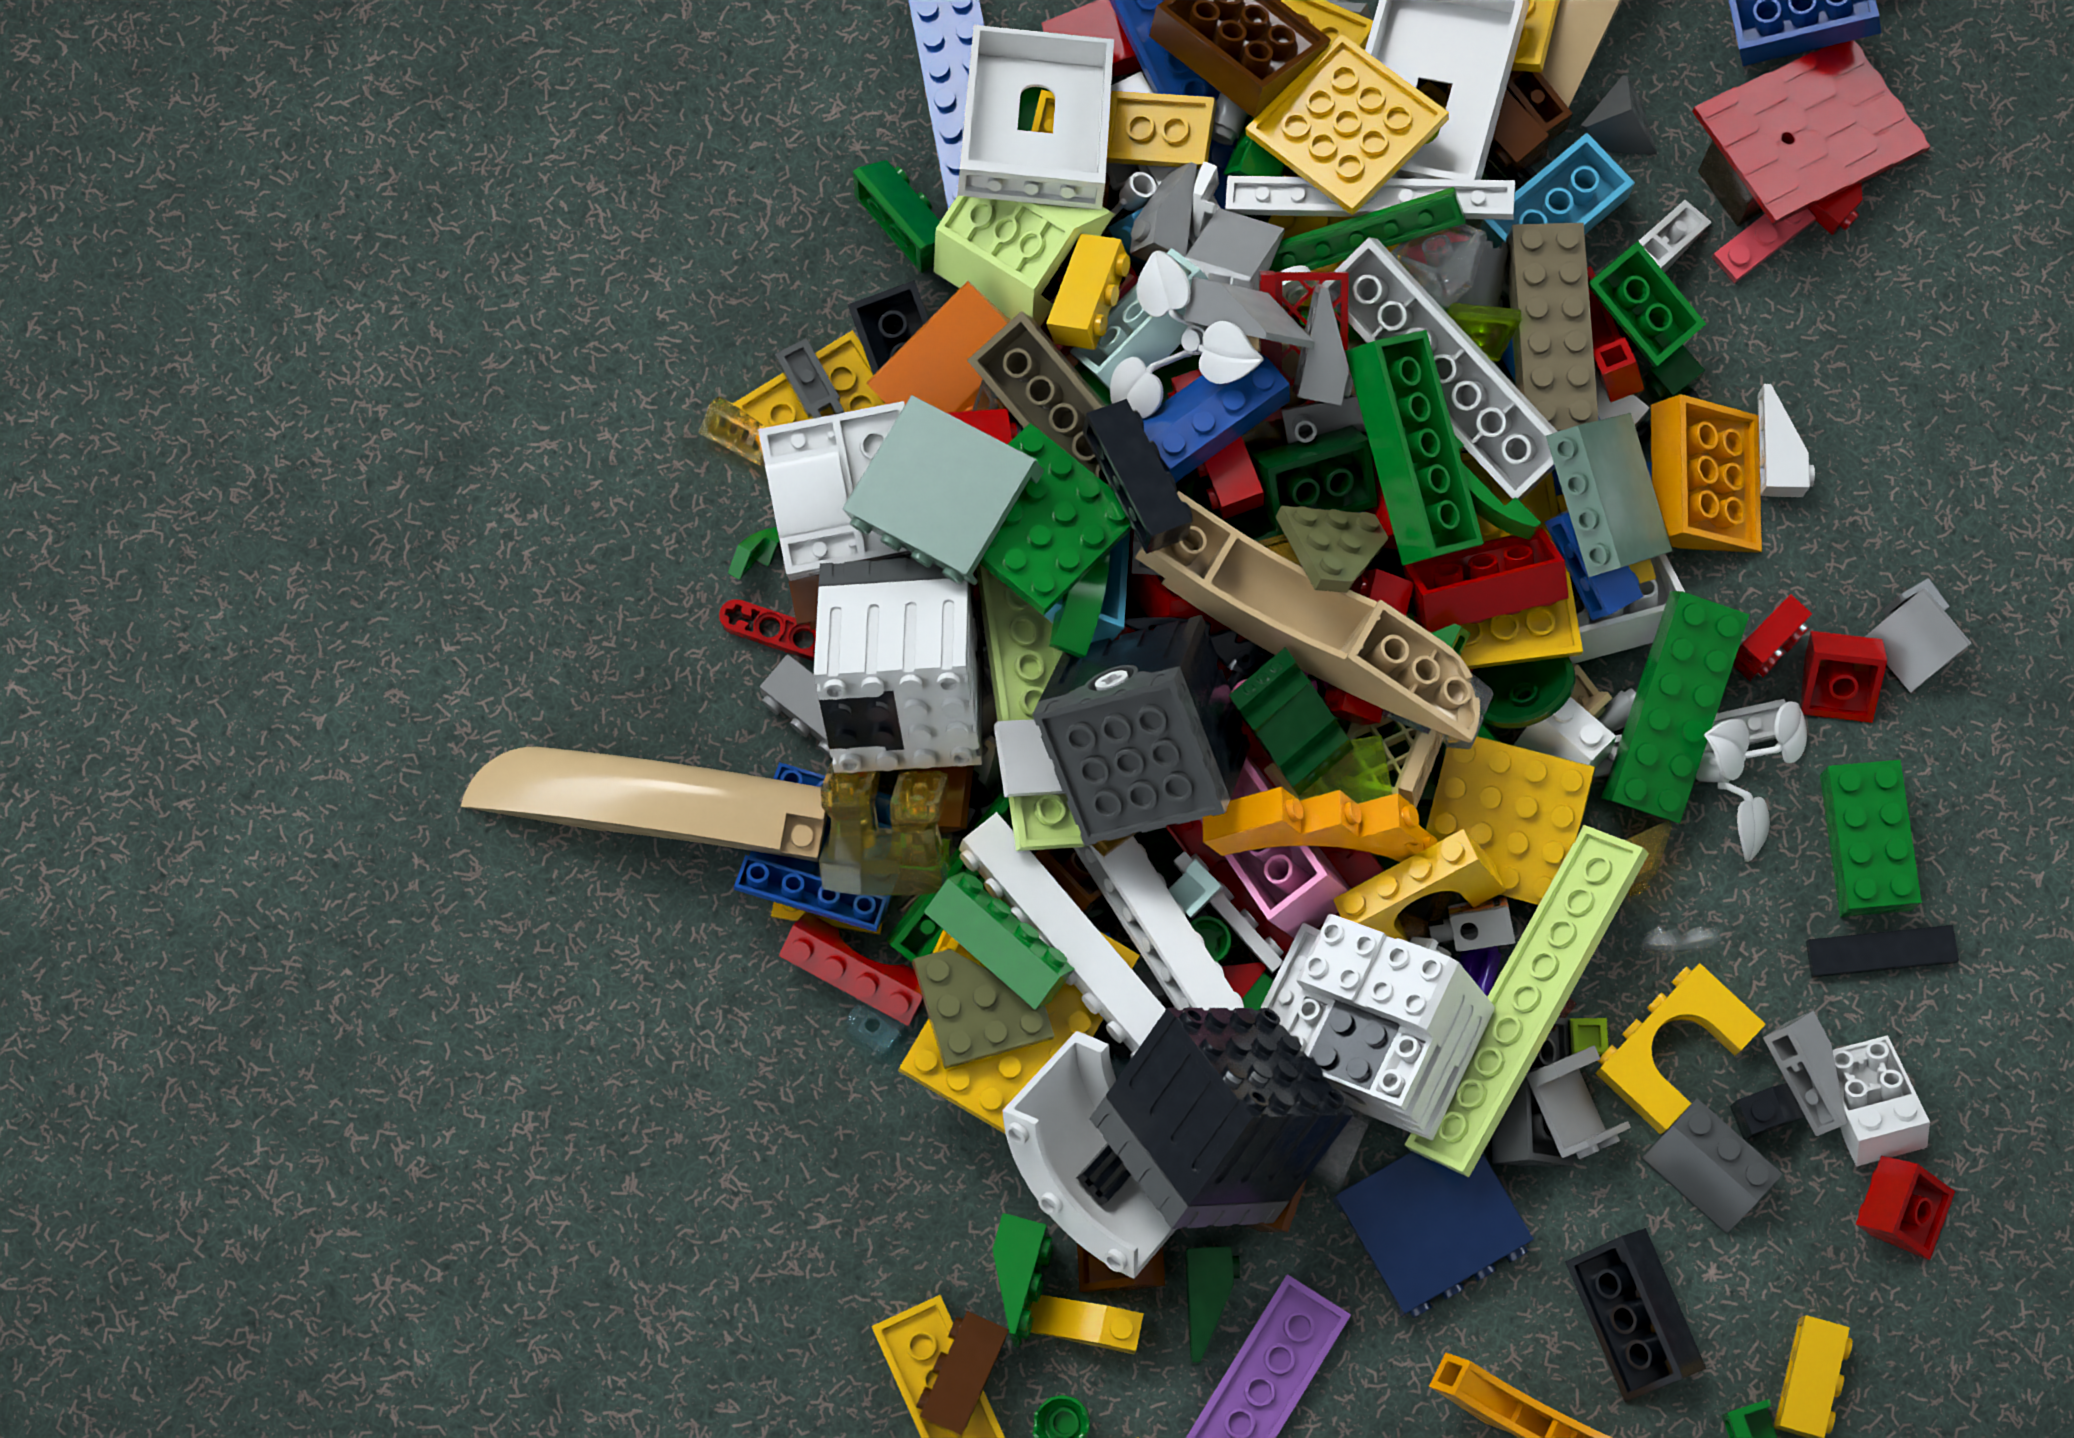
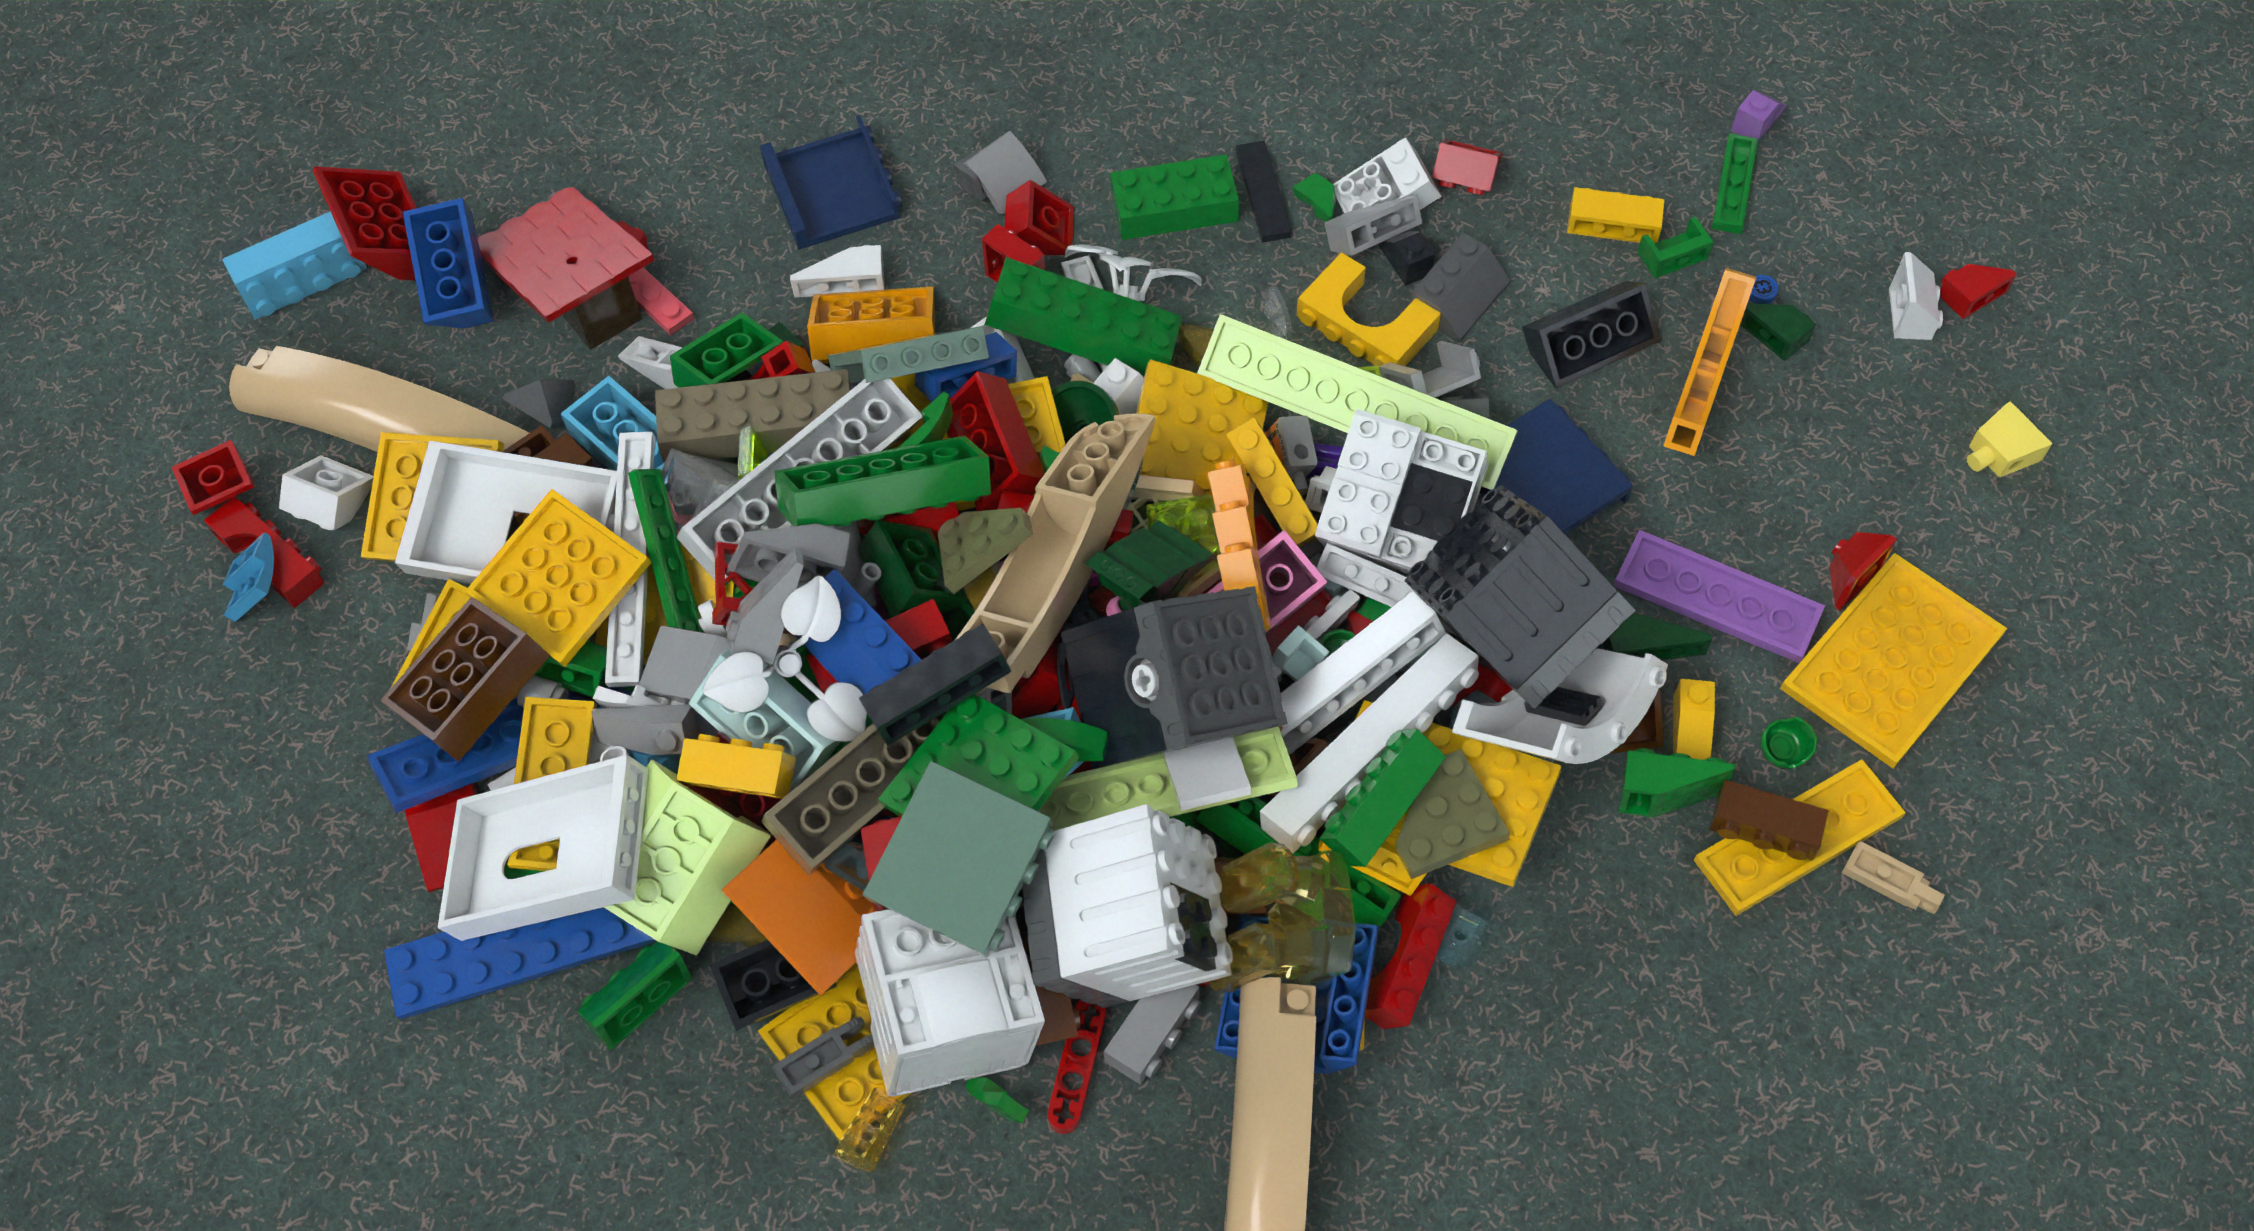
camera: 90 degrees left, 15 degrees down
(1868, 1016) = (1319, 194): none -> green slope
(1916, 438) = (832, 186): none -> dark blue panel

